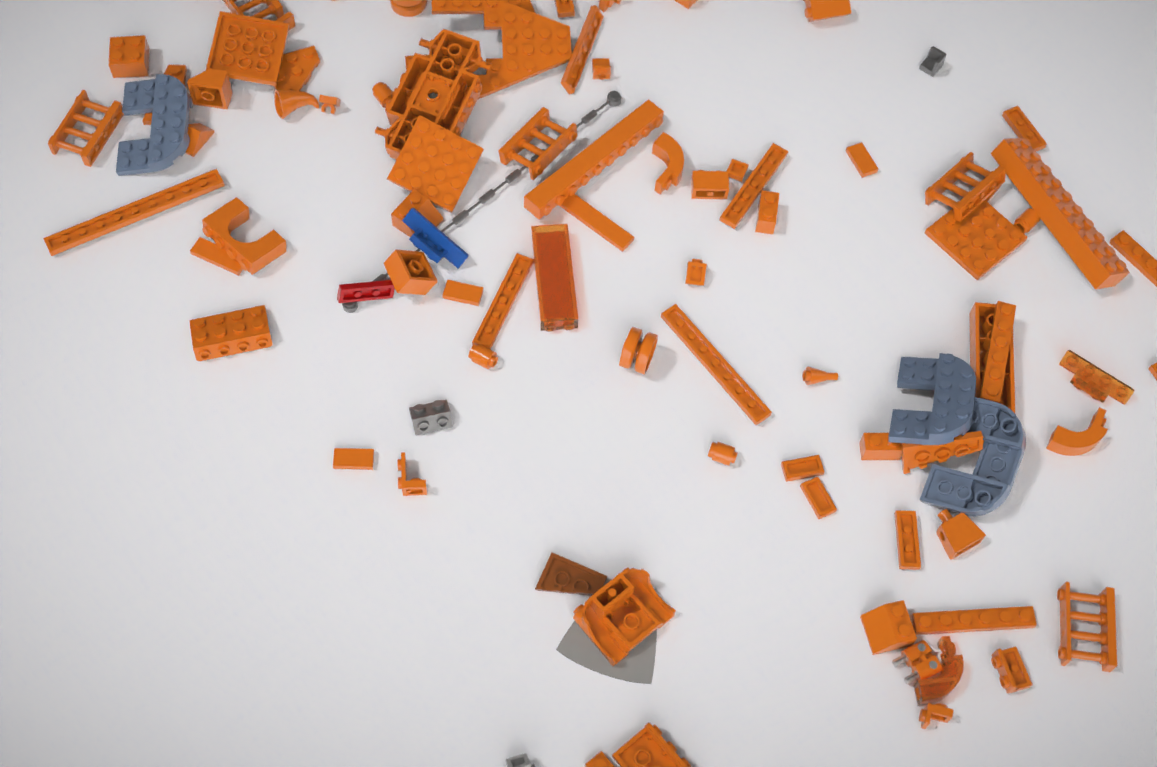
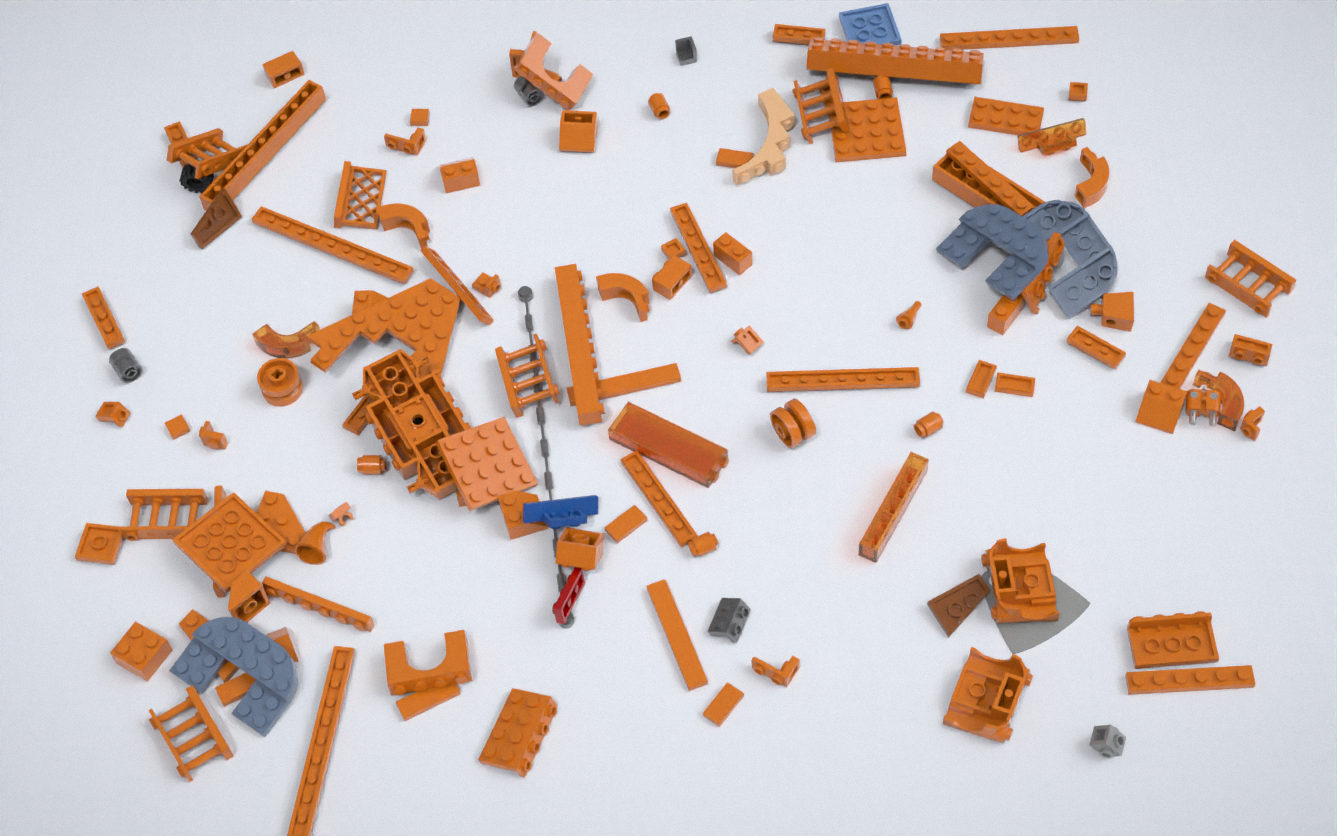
camera: 45 degrees left, 5 degrees down
(137, 130) = (234, 689): none -> orange tile
(243, 142) = (322, 606): none -> orange plate
(391, 388) = (677, 635): none -> orange tile
(498, 651) = (987, 695): none -> orange piece
(620, 472) = (893, 507): none -> clear orange brick
(789, 37) = (578, 131): none -> orange slope
(864, 76) = (659, 105): none -> orange brick
(903, 176) = (778, 140): none -> light nougat arch
(1082, 175) = (870, 24): none -> medium blue plate
(1084, 330) = (1004, 116): none -> orange plate

